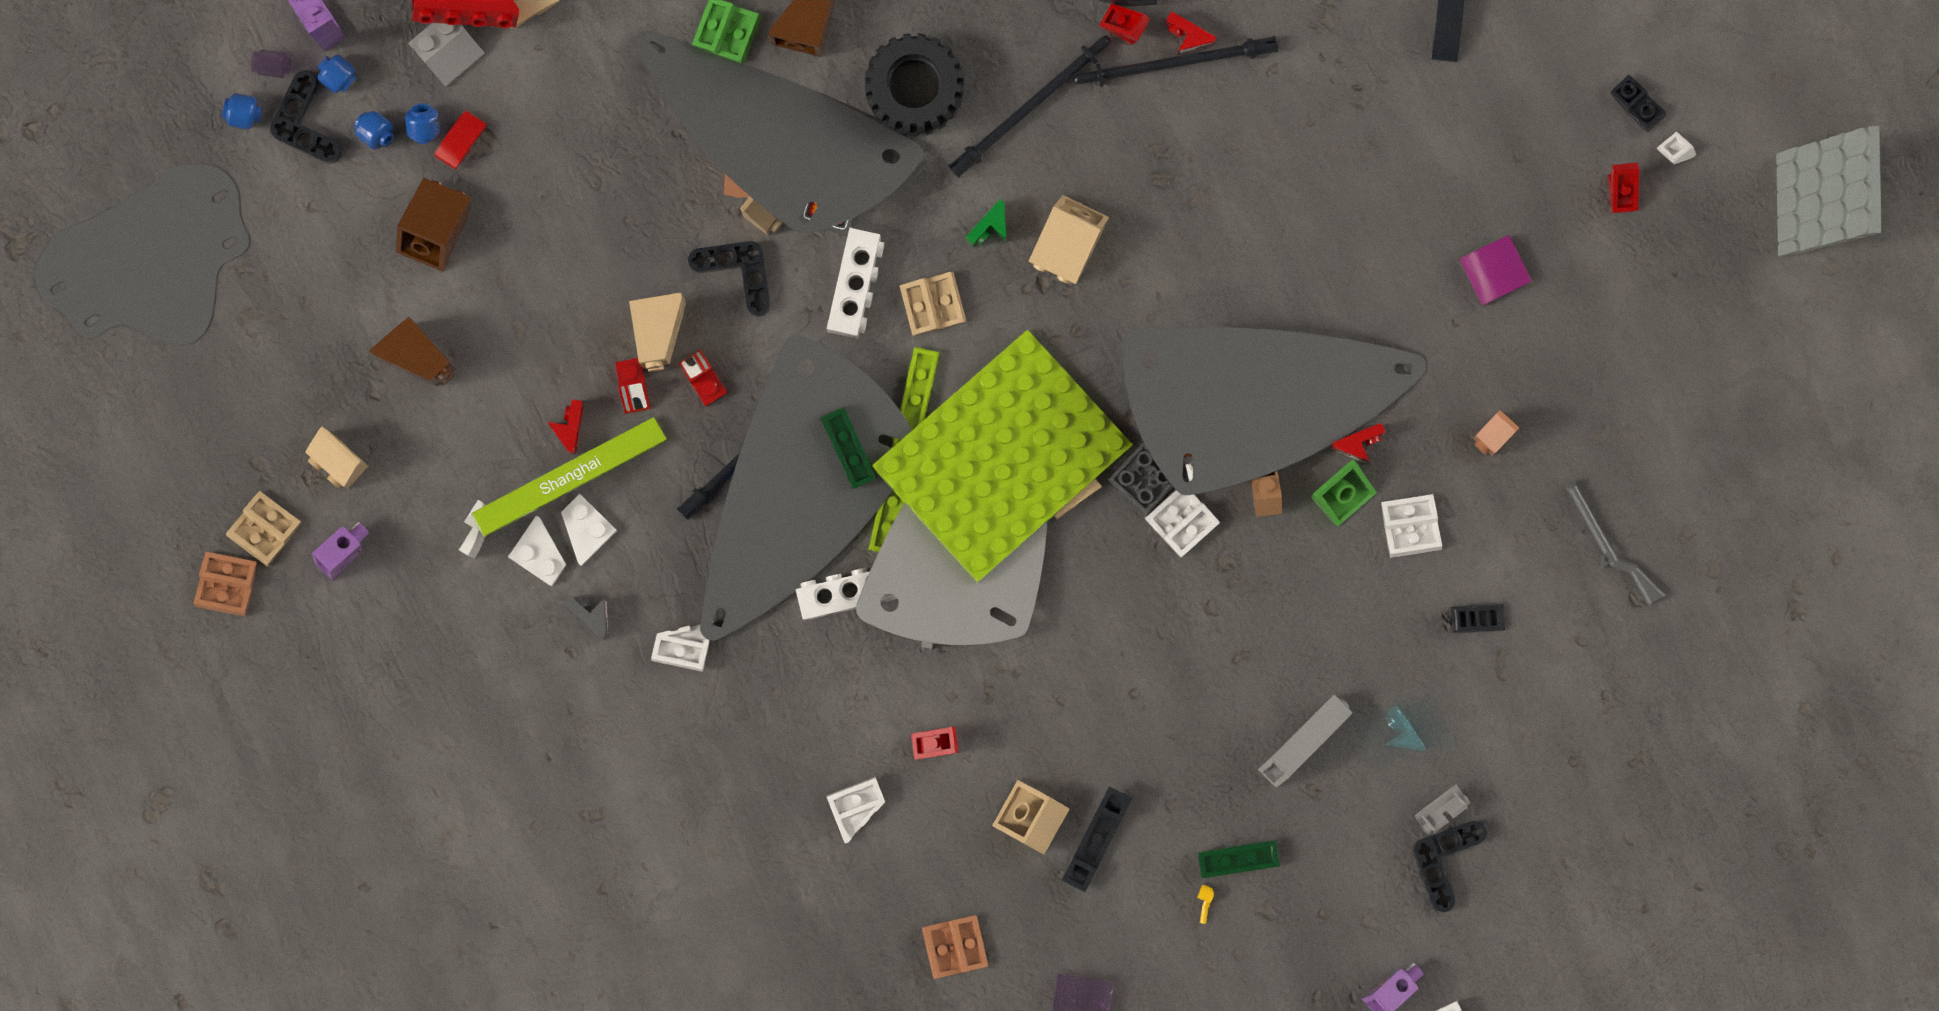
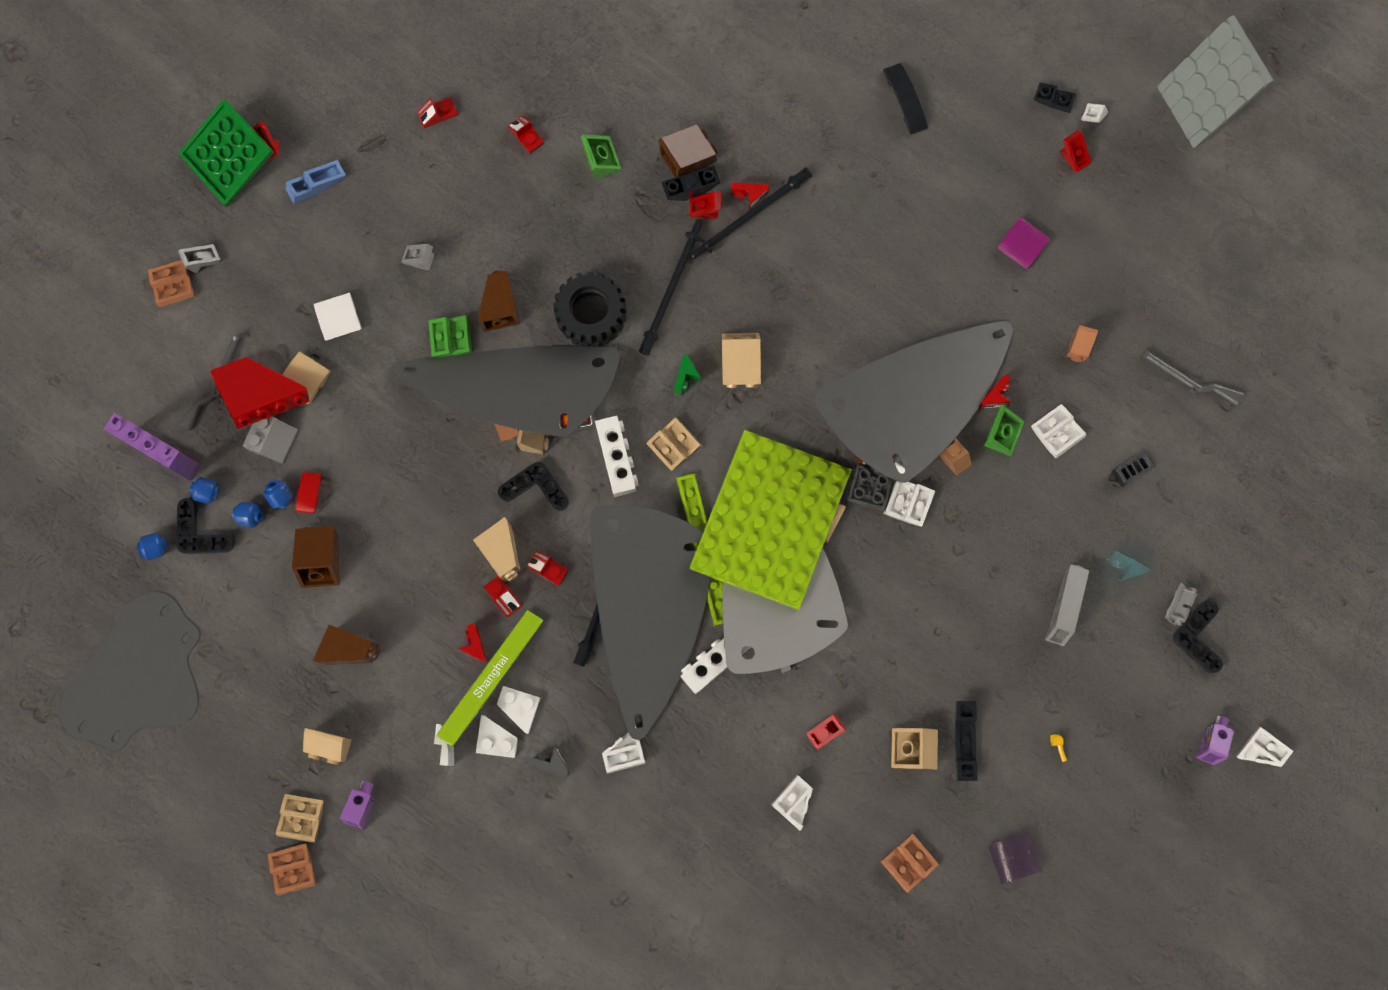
camera: 30 degrees left, 5 degrees down
(271, 63) = (157, 505): clear purple brick -> none
(848, 447) = (667, 564): dark green plate -> none
(1238, 859) = (1065, 706): dark green plate -> none

